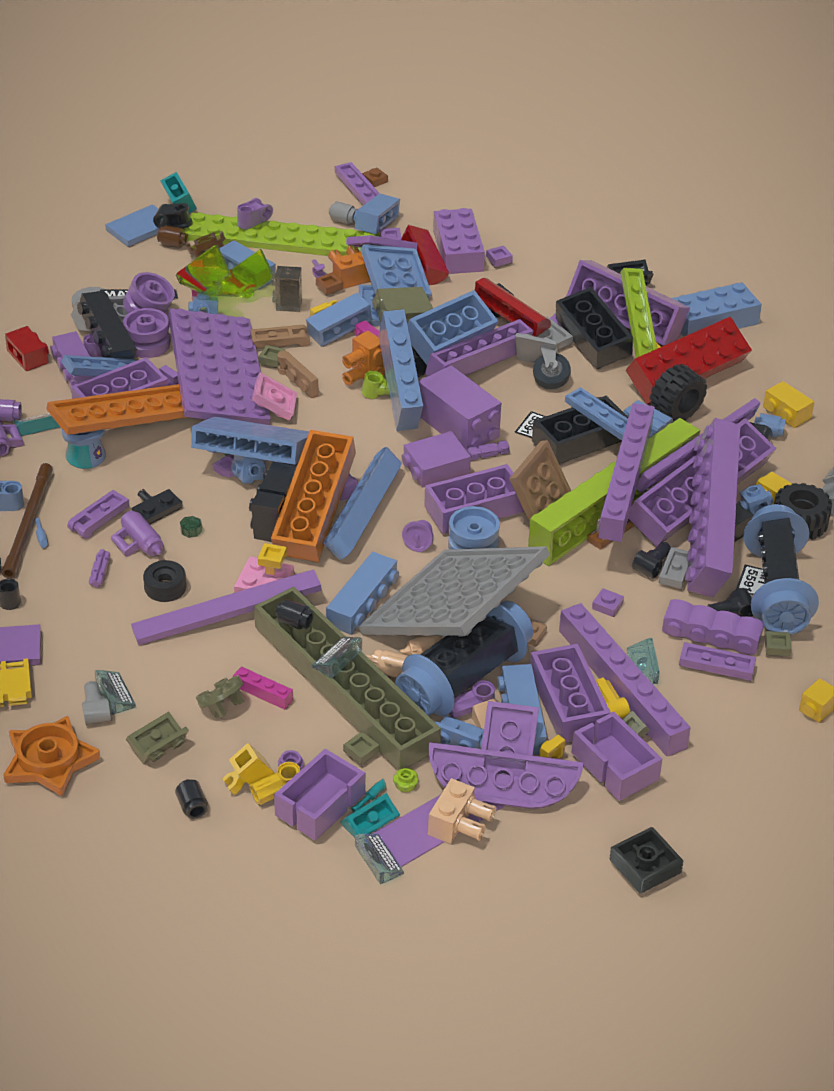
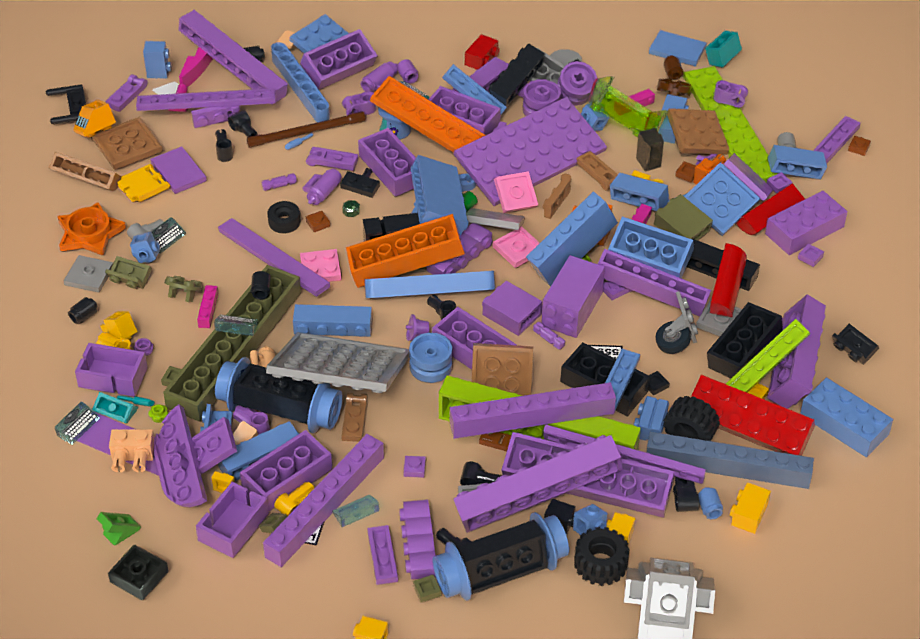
camera: 65 degrees right, 5 degrees up
(27, 461) = (359, 103): none -> medium lavender piece
(124, 779) = (88, 273): none -> light grey plate
(132, 707) = (145, 247): none -> medium blue brick
(151, 466) = (388, 160): none -> medium lavender brick
(173, 215) = (690, 56): black piece -> none
(190, 558) = (317, 221): none -> dark orange plate
(269, 356) = (574, 172): olive plate -> none
(272, 557) = (326, 255): yellow tile -> none
(287, 251) = (698, 131): none -> medium nougat plate
(310, 417) = (495, 218): none -> light grey tile
(351, 423) = (515, 246): none -> bright pink plate
(408, 505) = (442, 308): none -> black pin
(566, 863) = (117, 526): none -> bright green slope
(733, 386) = (734, 460): none -> sand blue brick

